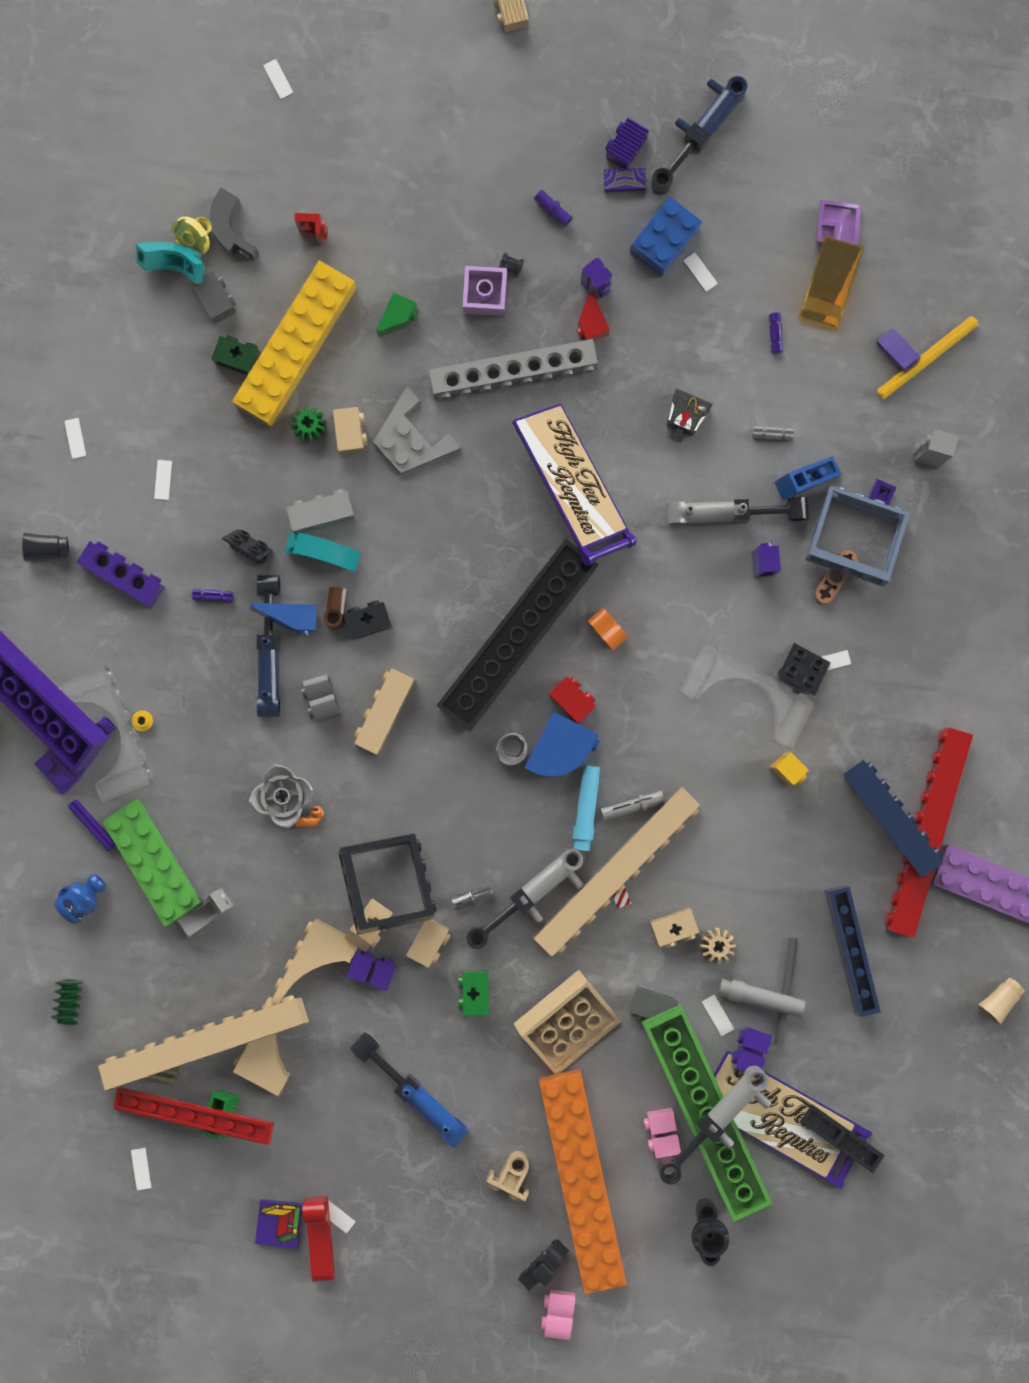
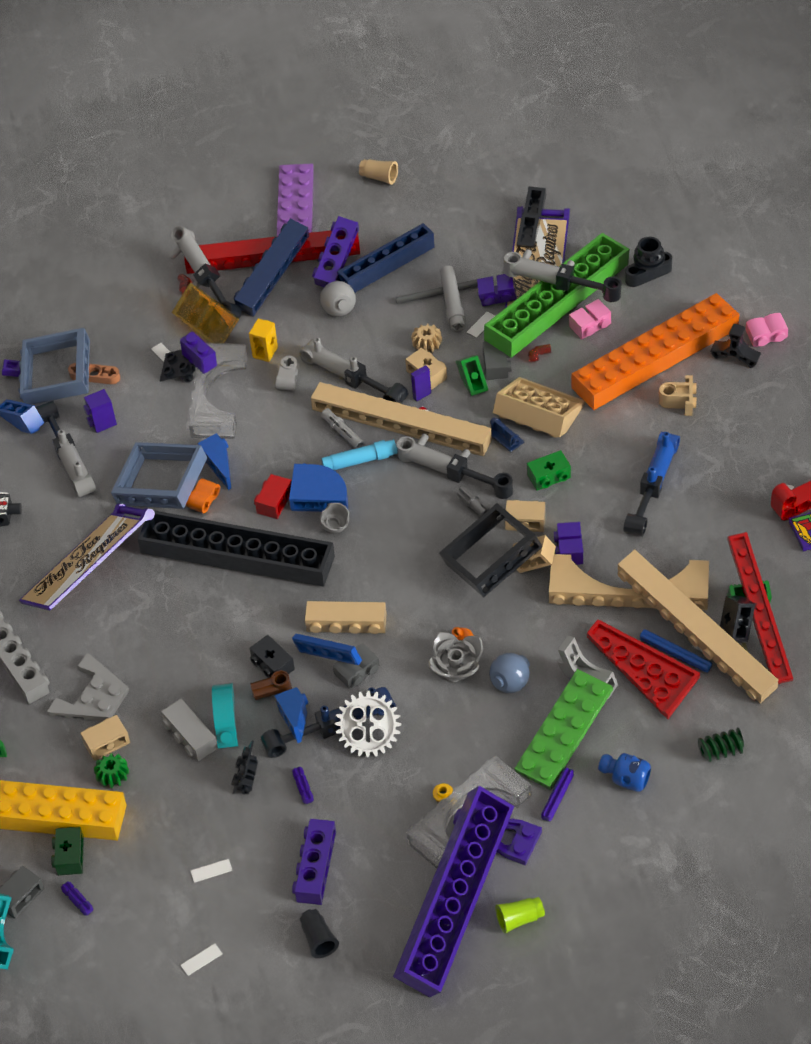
camera: 105 degrees left, 35 degrees down
(181, 978) = (653, 673): none -> red wing
(186, 348) = (77, 898): none -> dark purple axle
(191, 1086) = (737, 617): none -> black brick
(199, 1012) = (675, 650): none -> blue axle
(241, 840) = (509, 672): none -> sand blue brick
(245, 664) = (386, 724): none -> white gear
(343, 673) = (327, 649): none -> blue tile
(546, 969) = (504, 435): none -> dark blue hinge
(643, 971) = (472, 374): none -> green slope
(647, 1055) = (538, 350): none -> clear red arm
(648, 910) = (421, 383): none -> dark purple tile
(651, 662) = (217, 458): none -> blue slope
(672, 565) = (176, 499): none -> sand blue window
(708, 844) = (351, 371): none -> piece
(729, 775) = (287, 374): none -> light grey piece
(793, 690) = (198, 352): none -> dark purple brick
(815, 873) = (337, 298): none -> light grey brick
(853, 876) = (341, 227): none -> dark purple brick
(856, 721) = (205, 315): none -> clear yellow slope
(923, 719) = (184, 282): none -> clear red arm
(969, 735) = (204, 272): none -> piece

